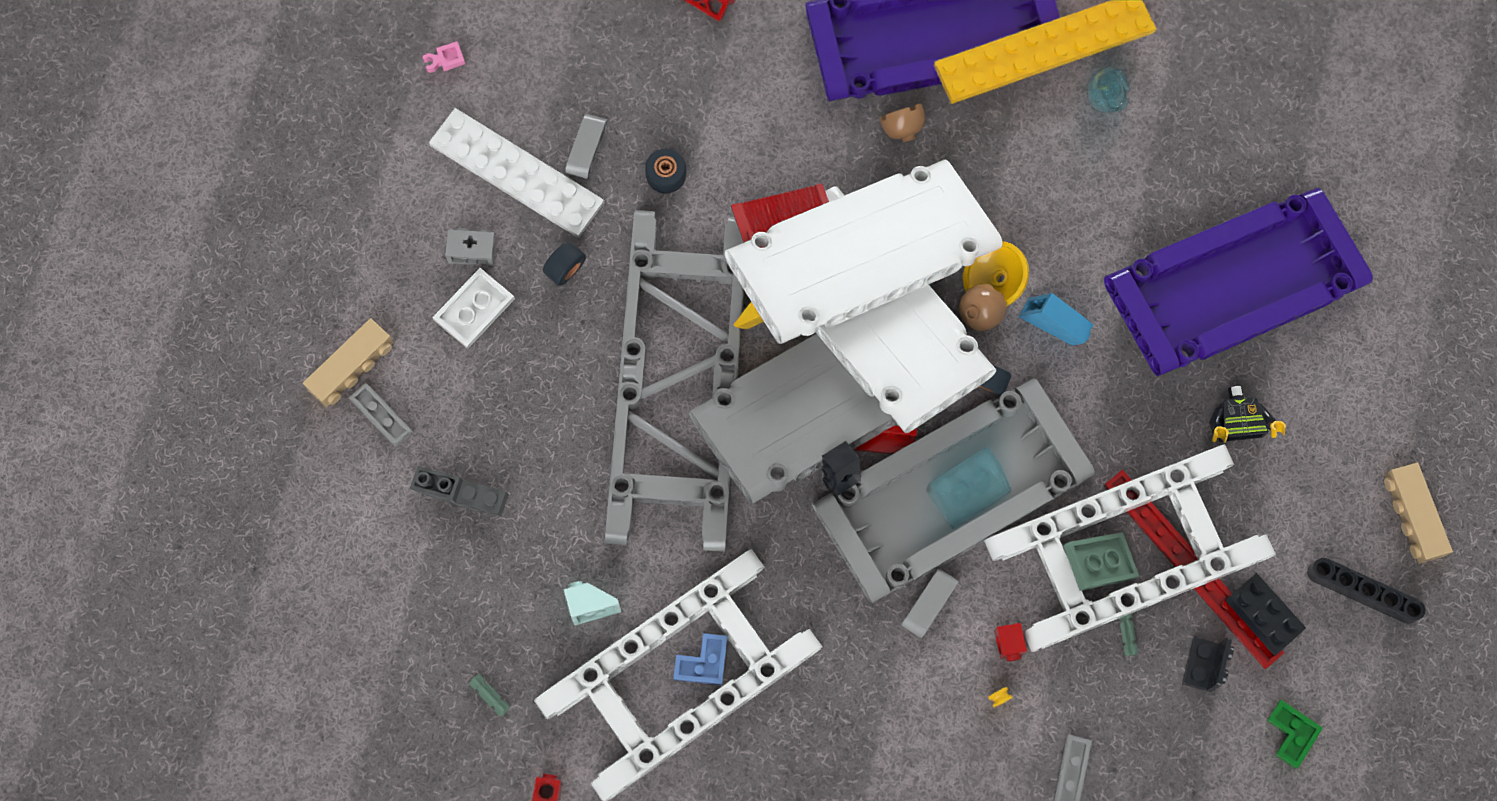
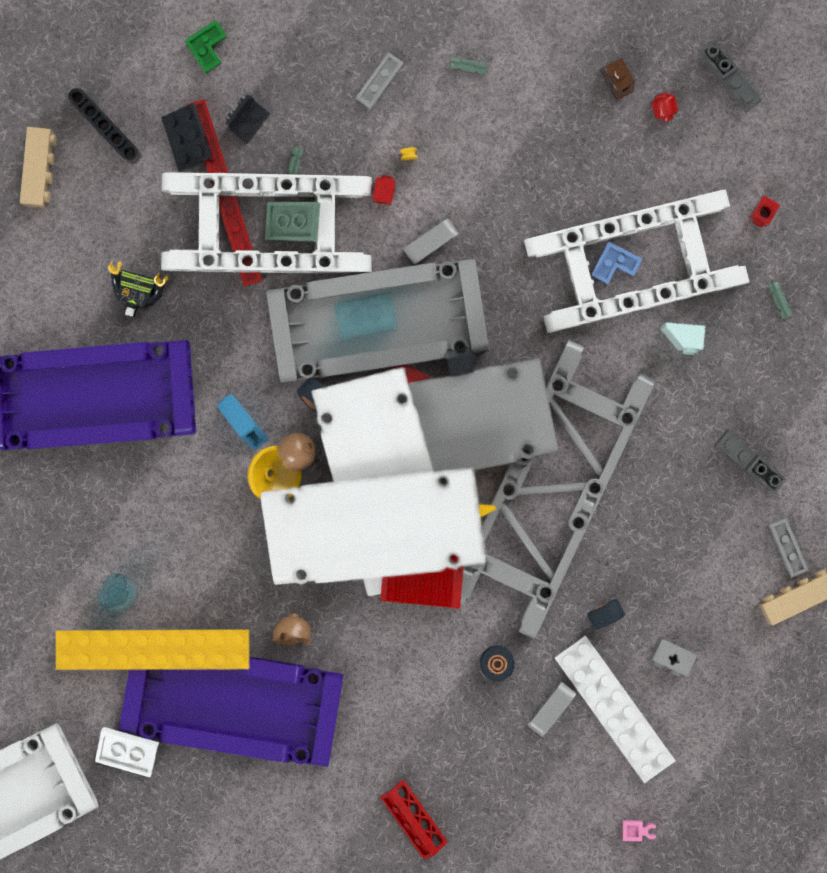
camera: 150 degrees left, 15 degrees up
(473, 308) = (688, 606): white plate -> none

